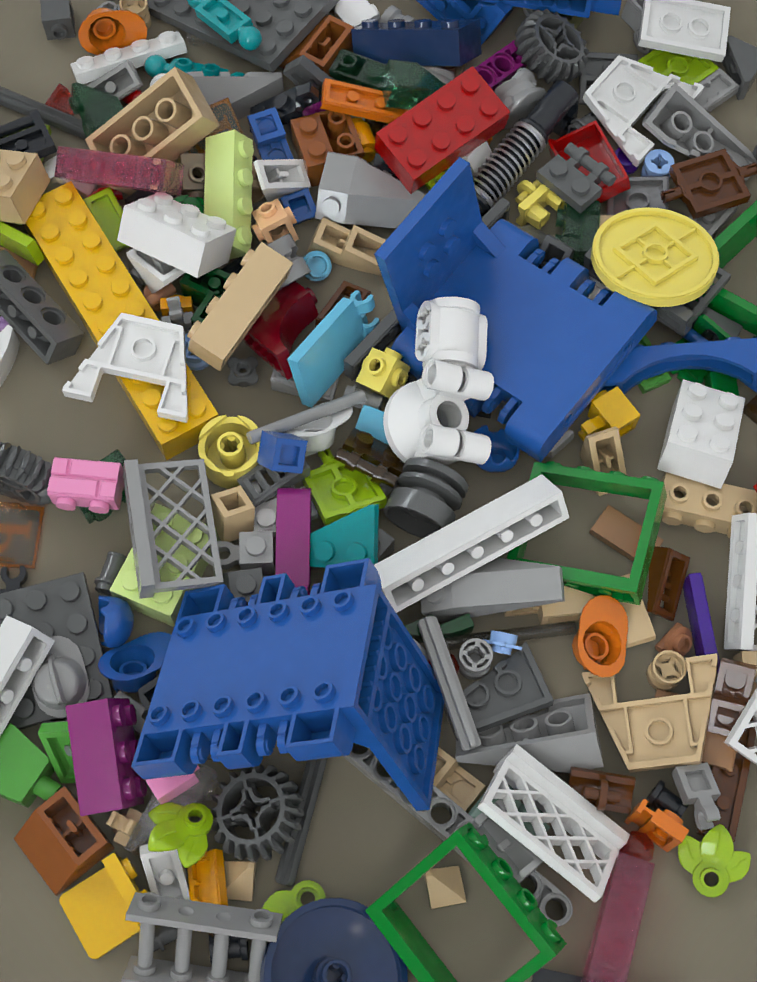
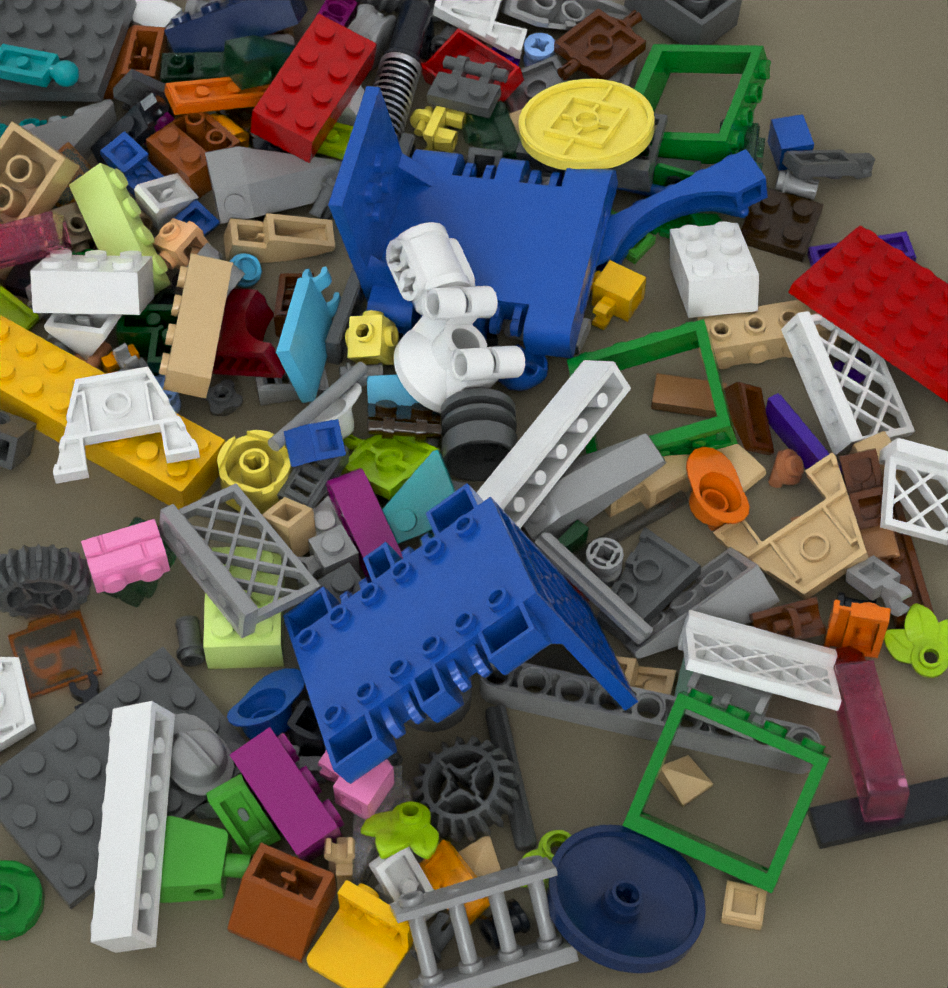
camera: 25 degrees left, 10 degrees down
(115, 621) = (219, 678): blue hair -> none
(503, 642) = (625, 533): light blue plate -> none
(603, 452) = (625, 323): tan slope -> none
(671, 665) = (791, 495): tan wheel -> none

